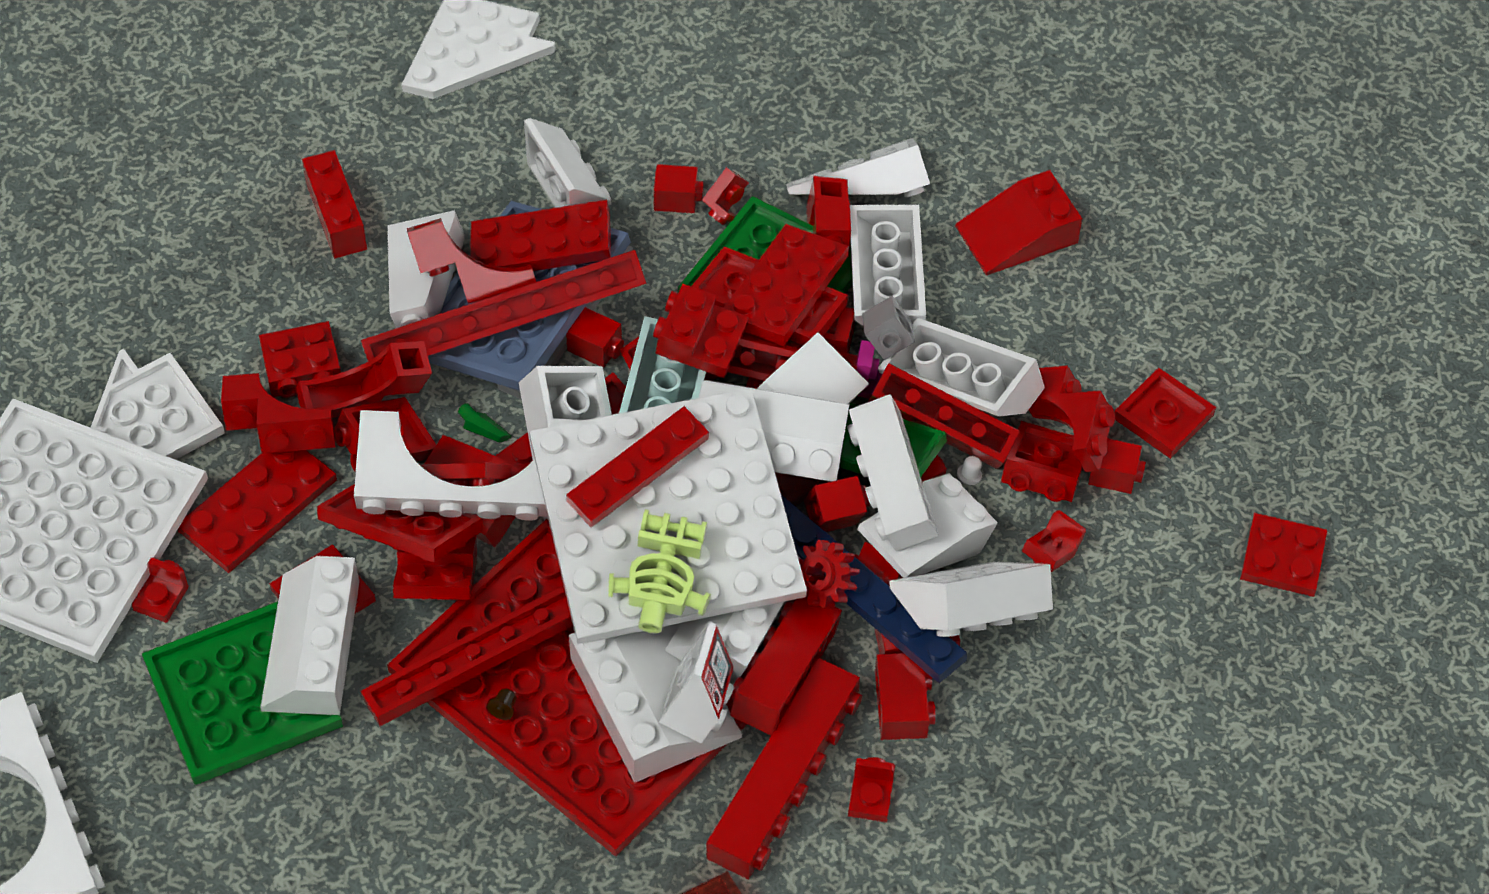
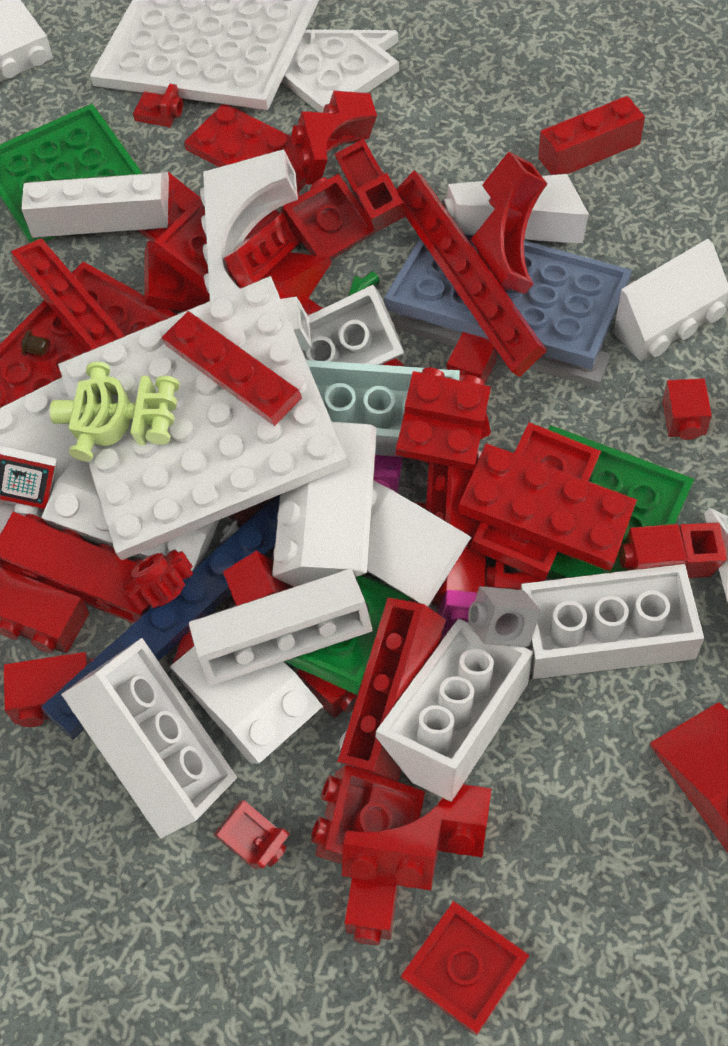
camera: 90 degrees right, 5 degrees up
(298, 356) = (411, 148): red plate -> none
(544, 237) = (574, 293): red plate -> none
(723, 194) = (684, 450): red bracket -> none

